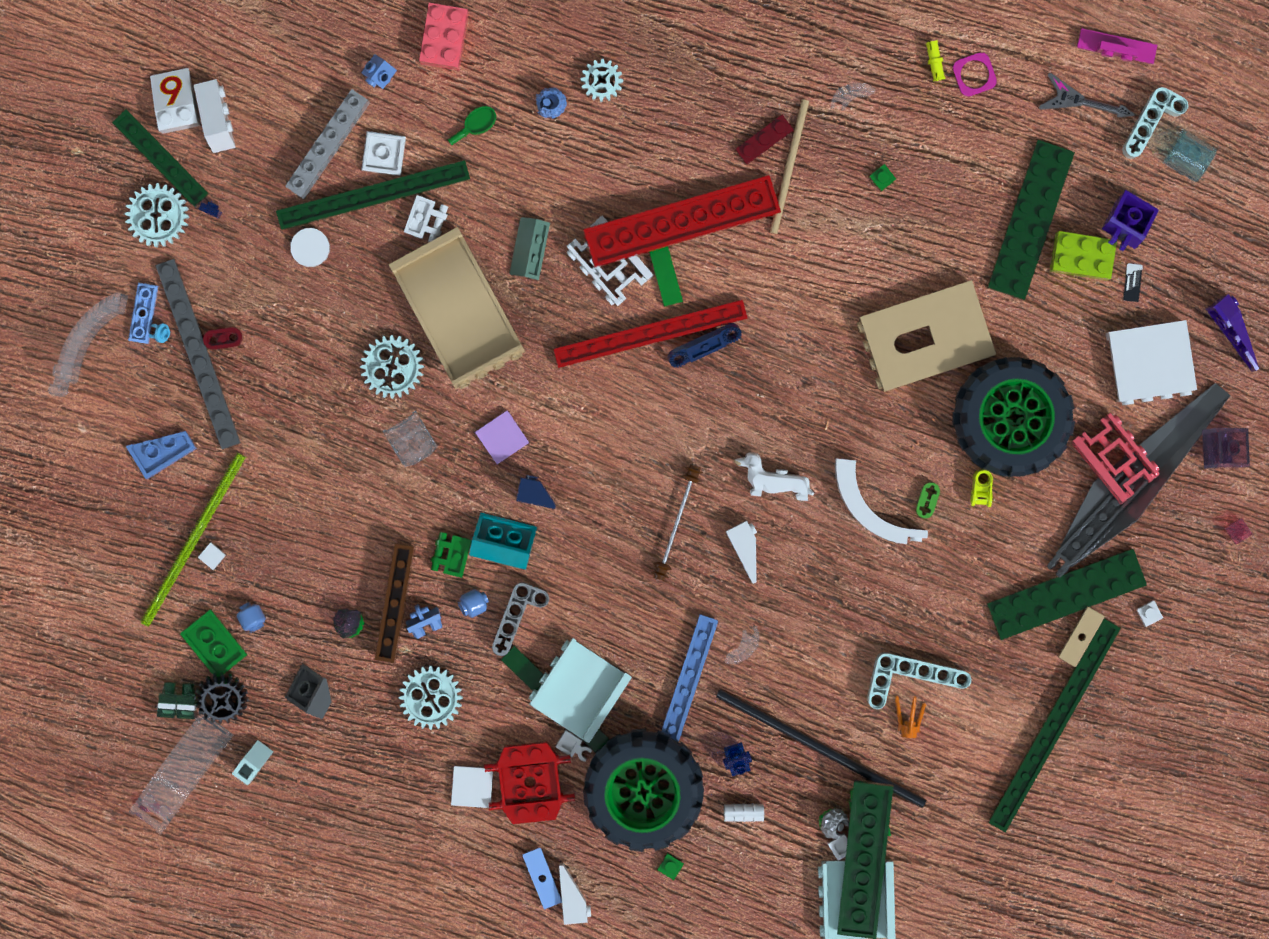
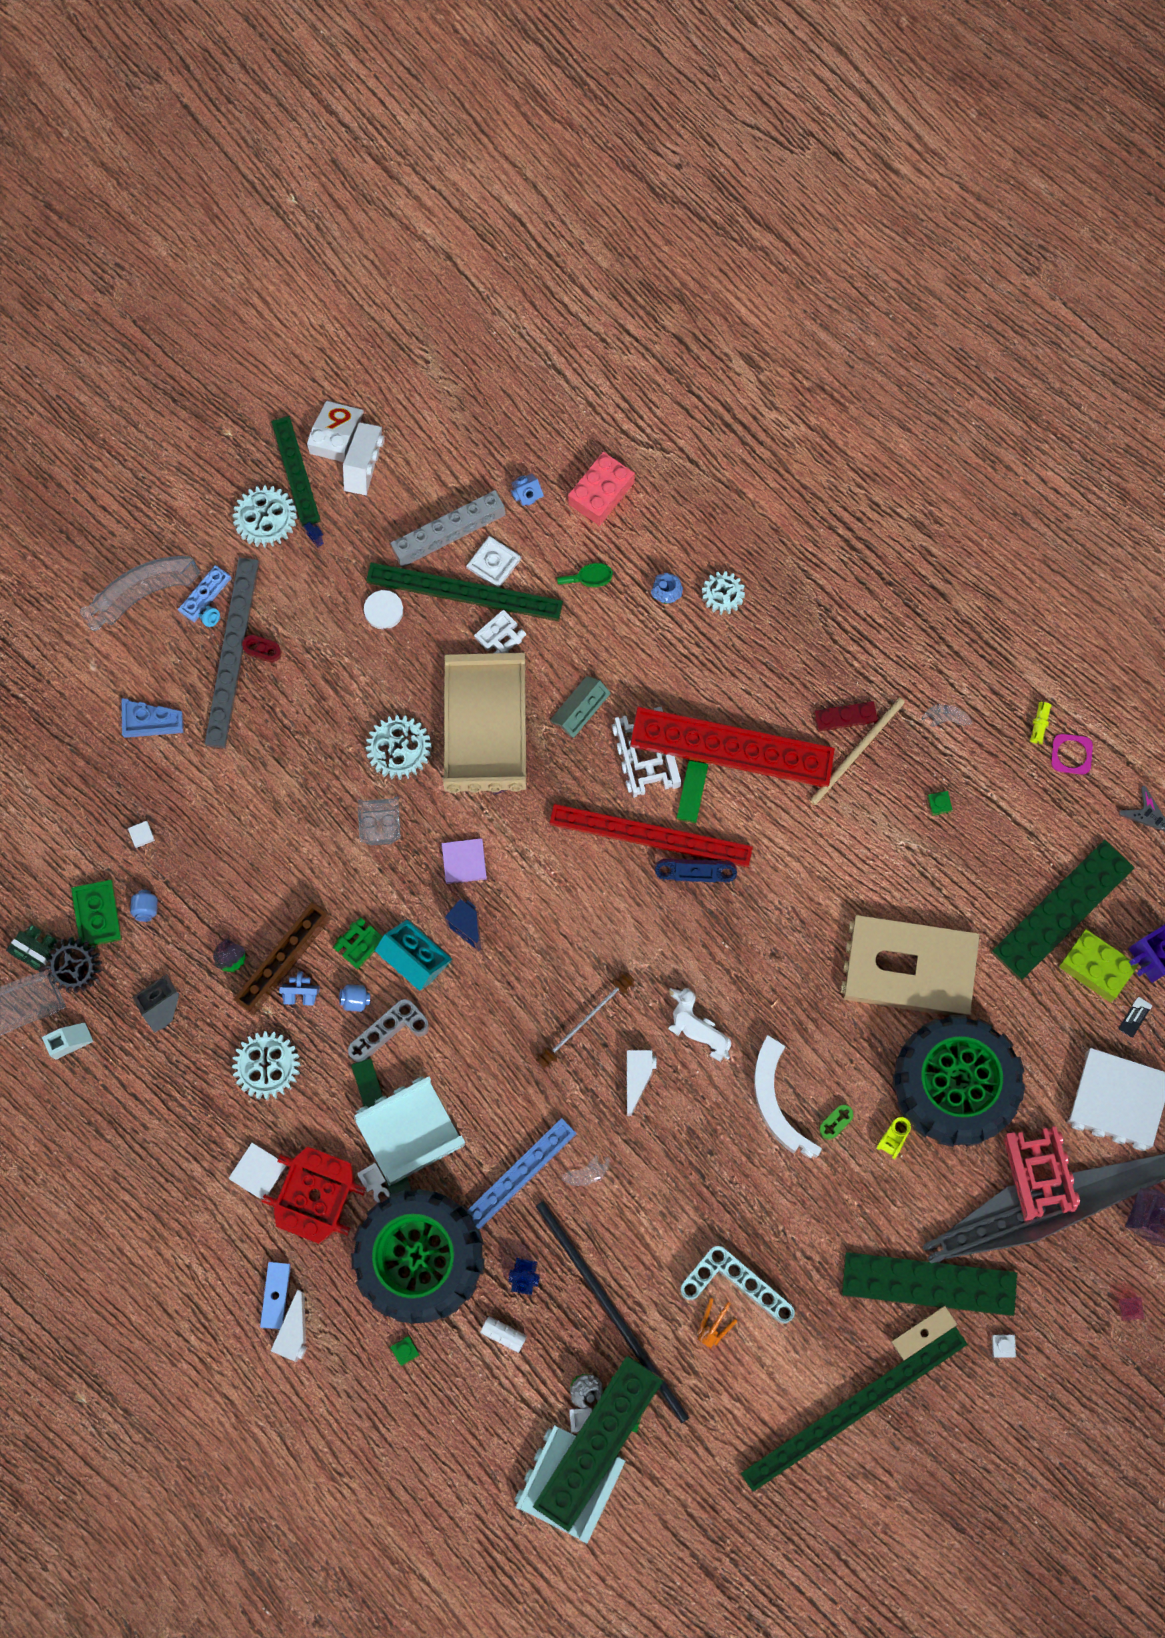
camera: 30 degrees right, 15 degrees down
(194, 537) = (119, 819): lime axle -> none

